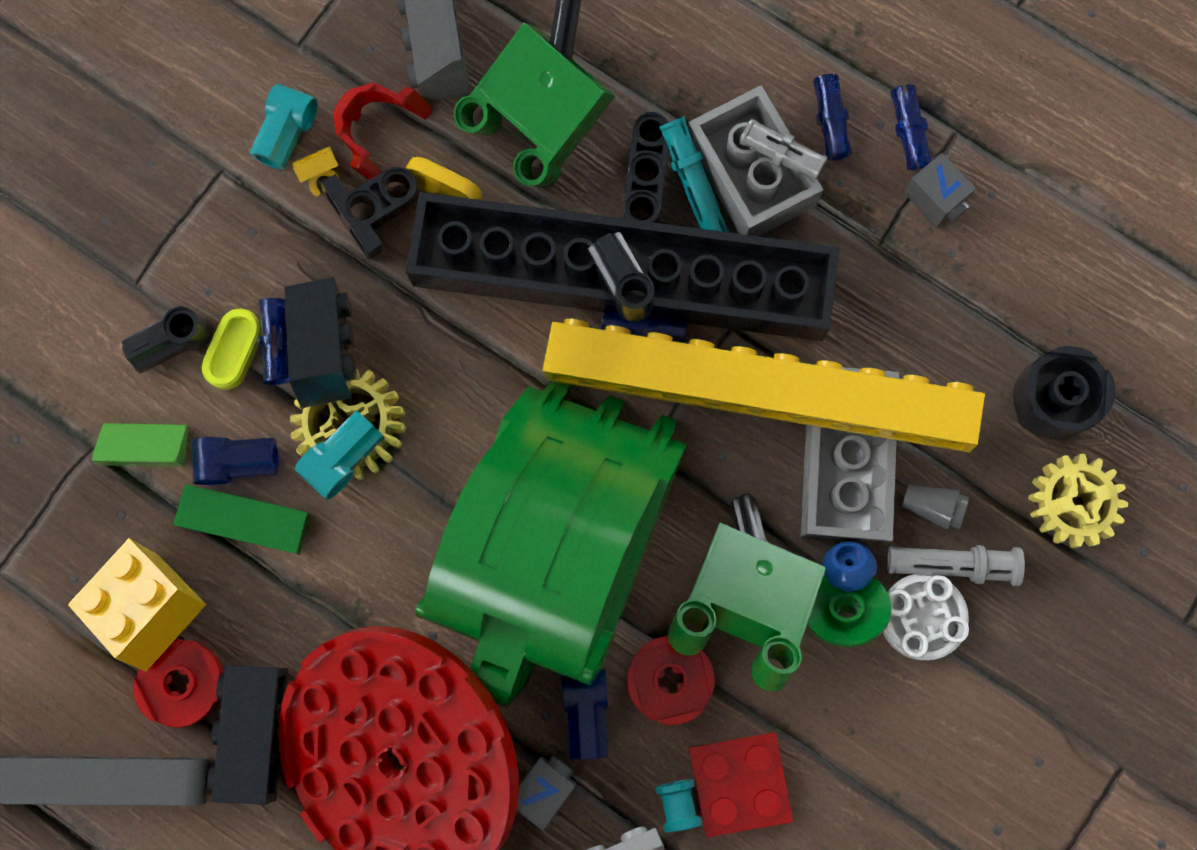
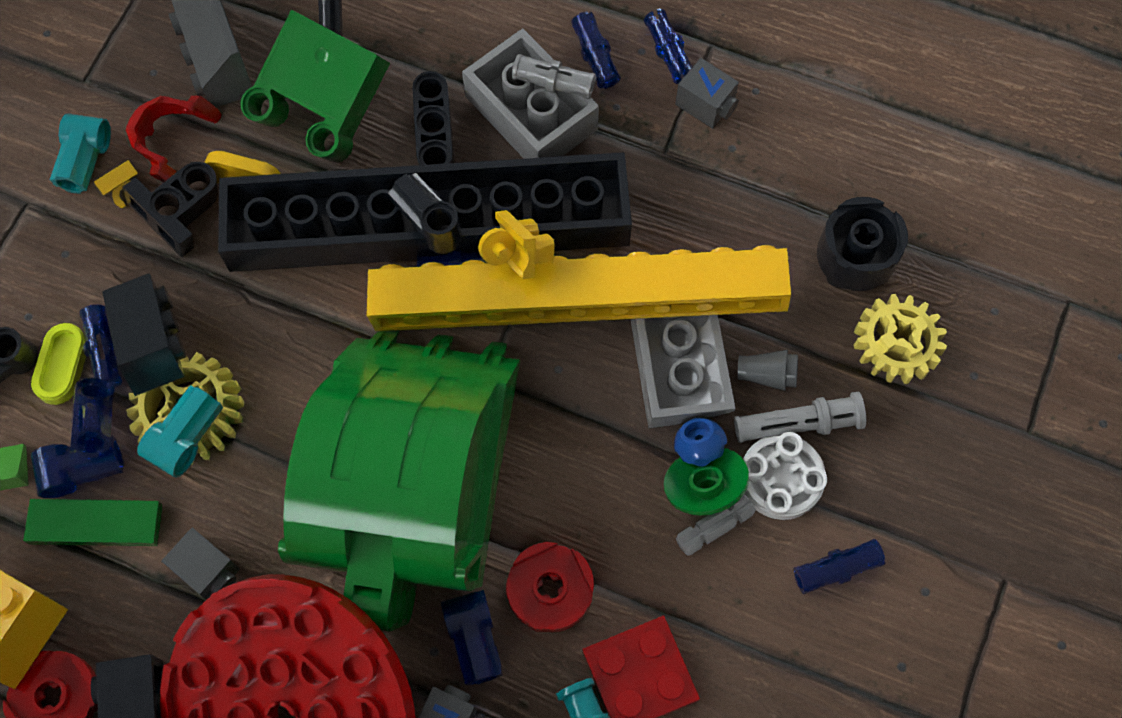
camera: 15 degrees left, 10 degrees down
(256, 418) = (92, 417): none -> clear blue piece
(339, 587) = (201, 564): none -> dark grey brick
(692, 174) = (474, 116): teal pin -> none
(709, 332) = (516, 244): none -> yellow hips
(752, 594) = (608, 482): green piece -> none
(836, 657) = (714, 526): none -> light grey axle
(959, 720) = (839, 566): none -> clear blue pin

